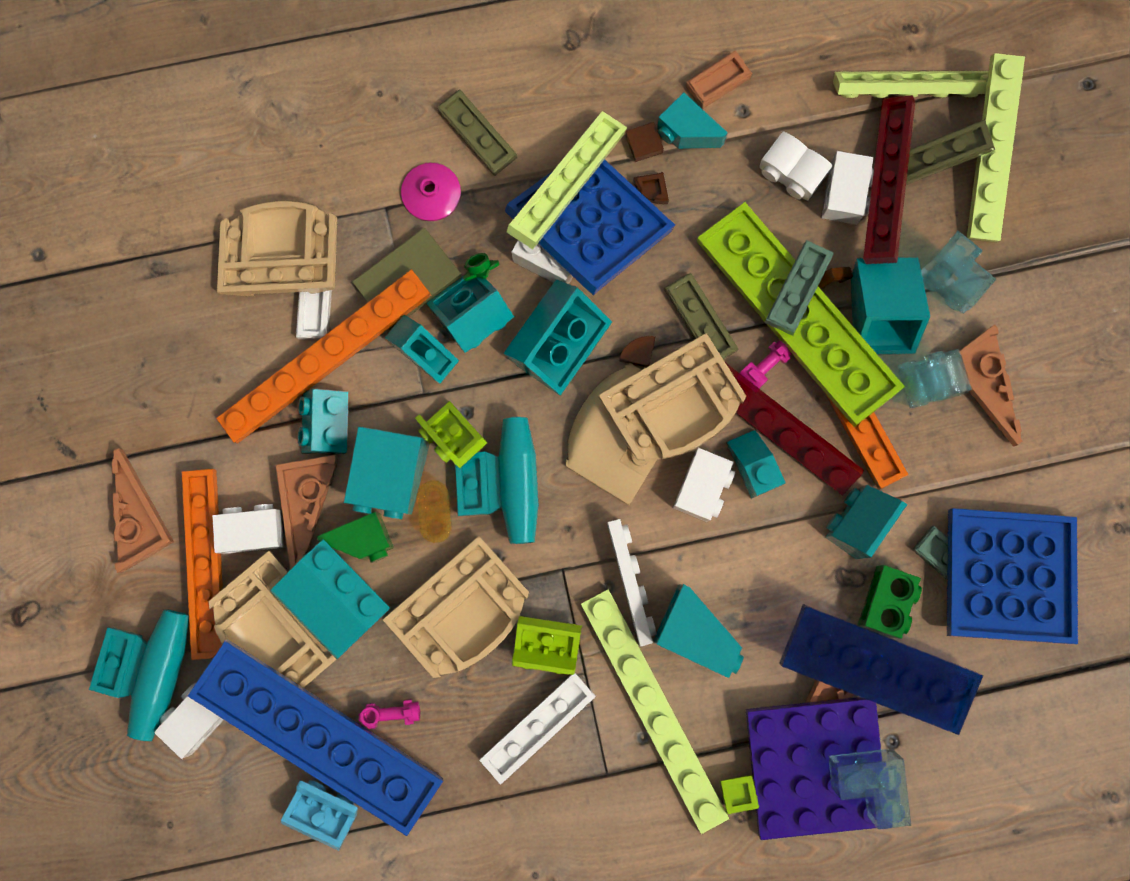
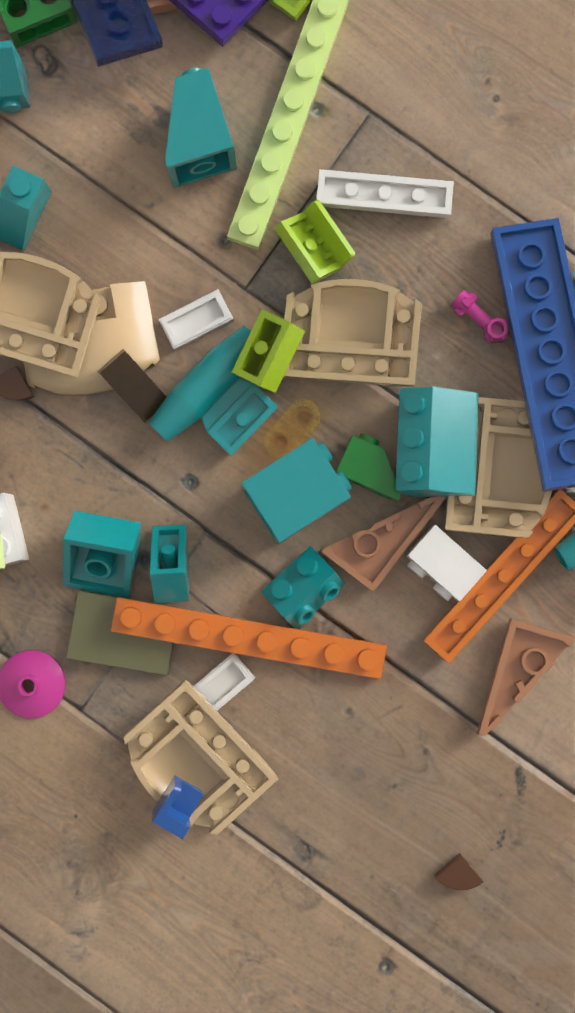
camera: 135 degrees left, 5 degrees up
(46, 353) = (458, 874): none -> reddish brown tile
(260, 209) = (176, 807): none -> blue panel
(452, 433) = (216, 468): lime bracket -> none
(479, 266) = (58, 580): green plate -> none
(497, 540) = (268, 351): none -> lime brick
(558, 336) = (57, 461): teal slope -> none
(562, 431) = (133, 385): none -> dark brown tile
(570, 515) = (196, 320): none -> white tile
(635, 595) = (212, 210): white plate -> none
(704, 485) = (74, 233): white brick -> none

